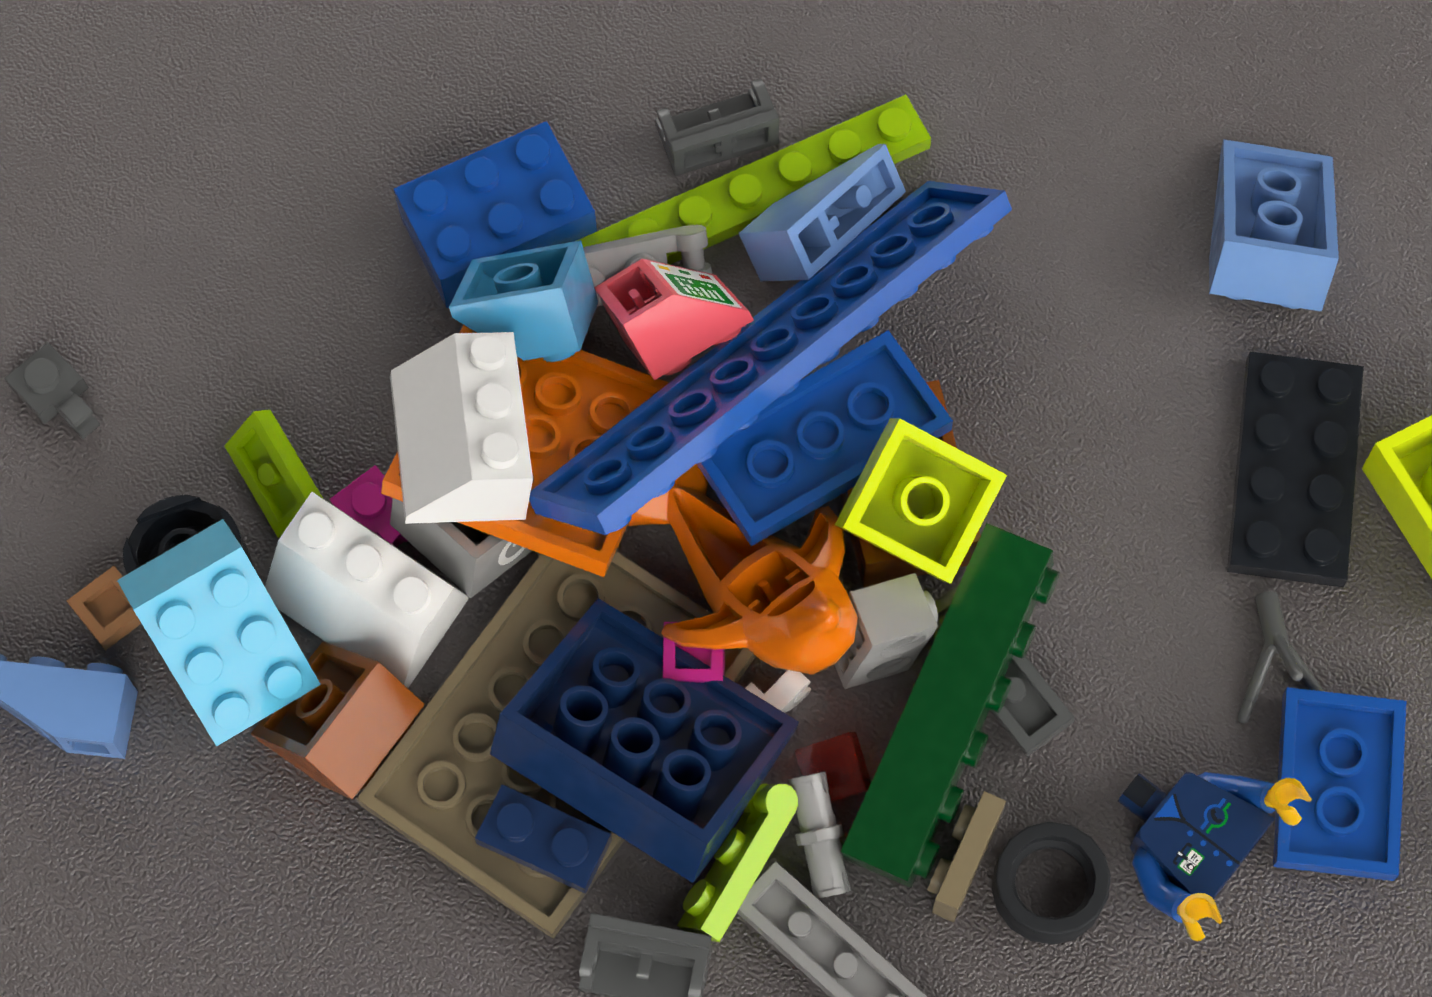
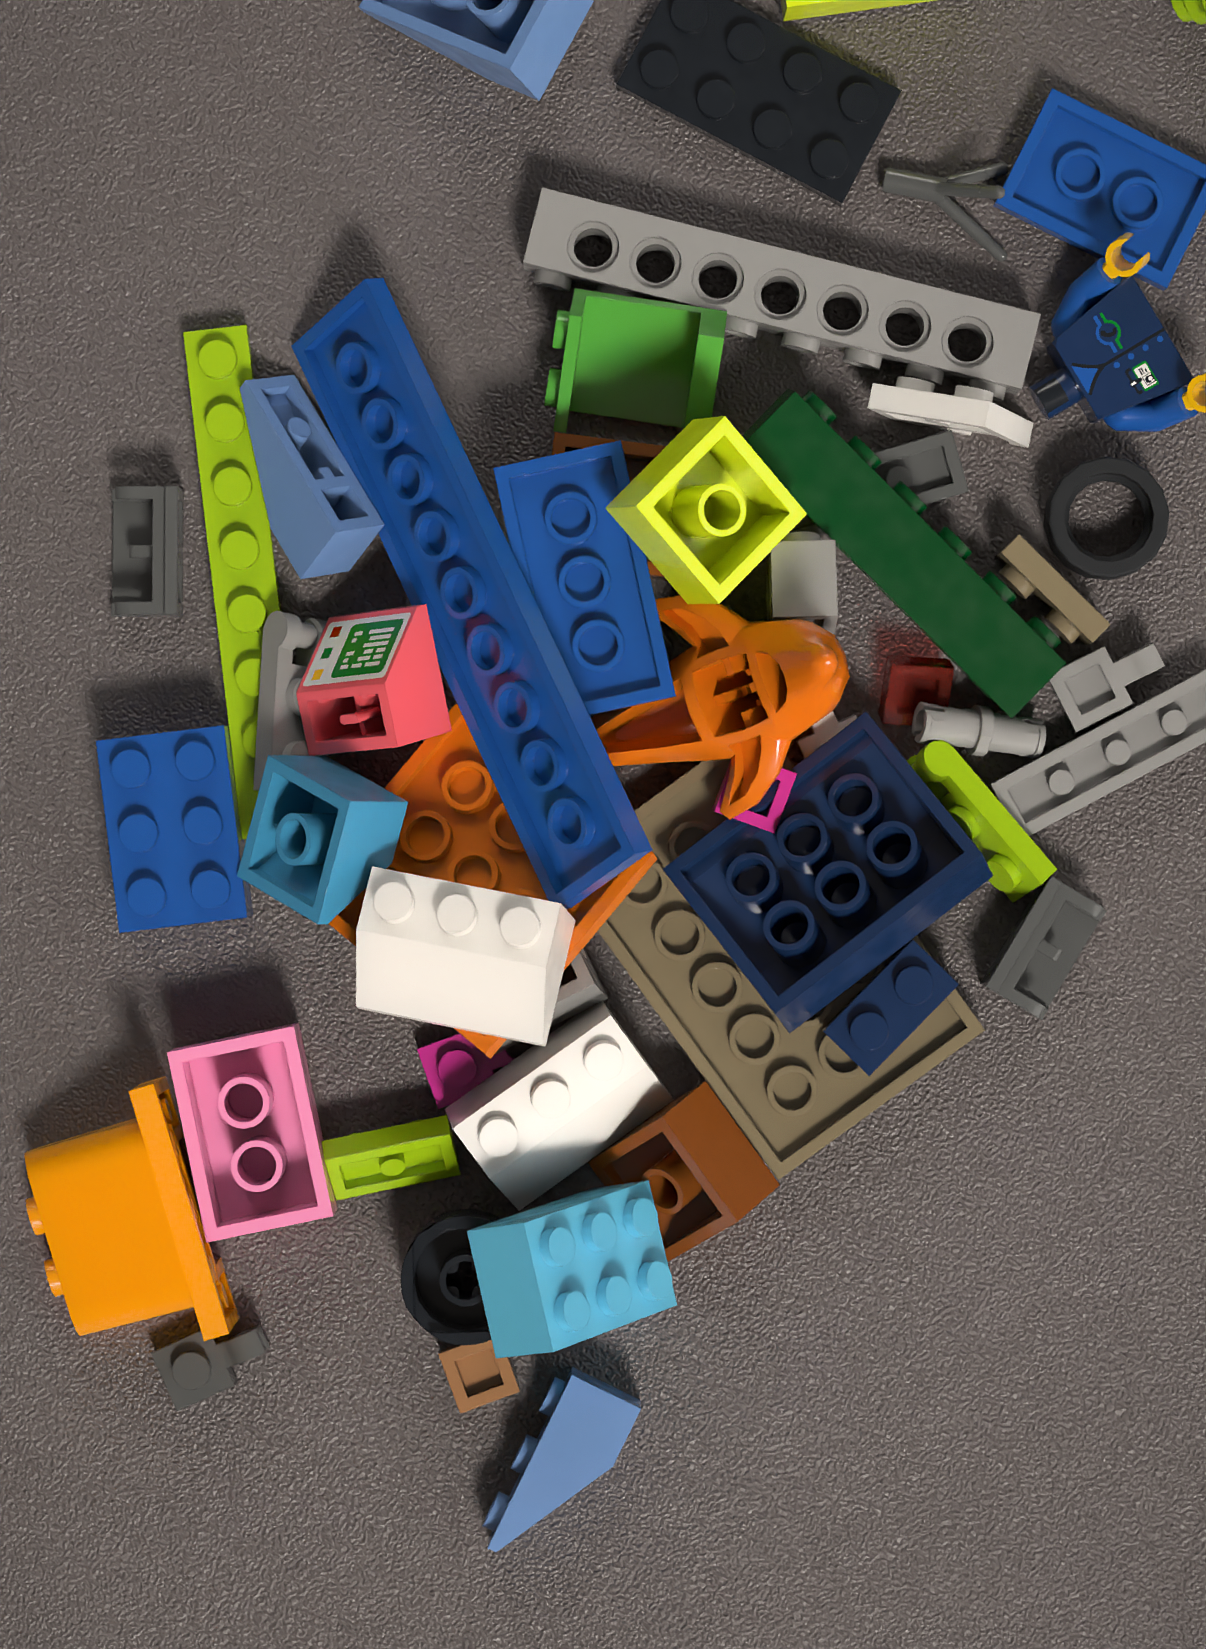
camera: 75 degrees left, 20 degrees up
(151, 279) = (127, 1223): none -> light orange windscreen
(261, 349) = (252, 1132): none -> bright pink brick
(899, 927) = (1096, 686): none -> light grey plate
(1030, 429) = (635, 359): none -> bright green panel
(1093, 713) = (963, 413): none -> white wing
(1117, 346) = (1003, 330): none -> light grey brick

